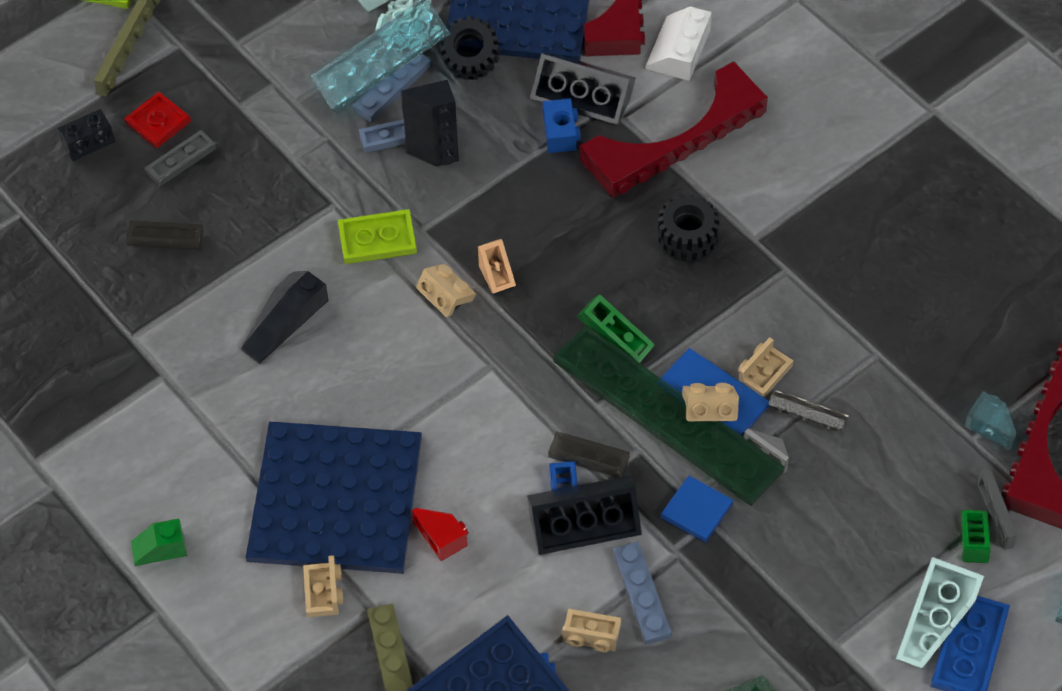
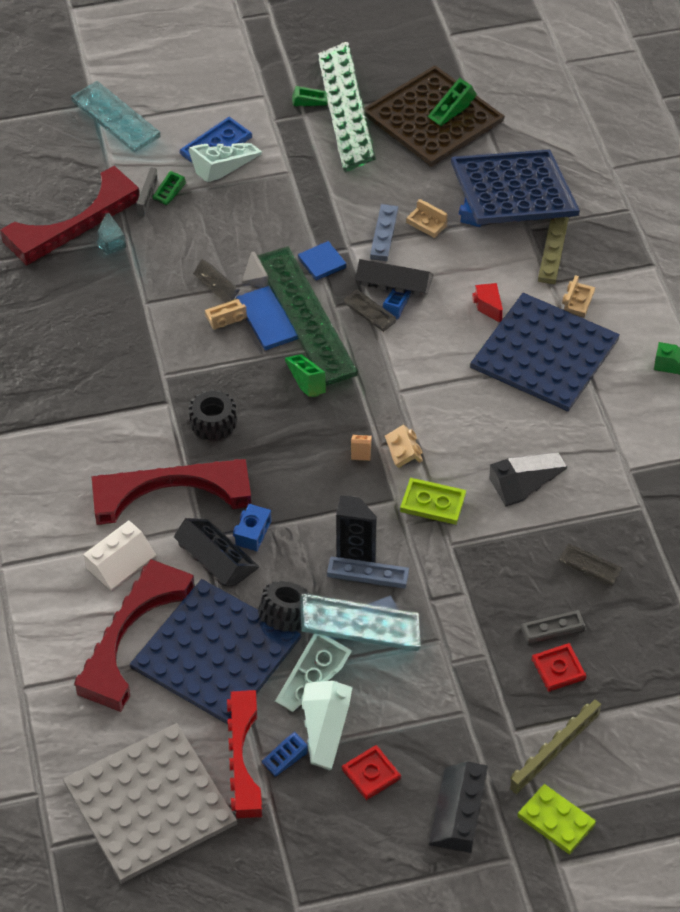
camera: 155 degrees left, 5 degrees down
(86, 135) = (623, 666): black brick -> none
(711, 402) = (275, 301): tan bracket -> none

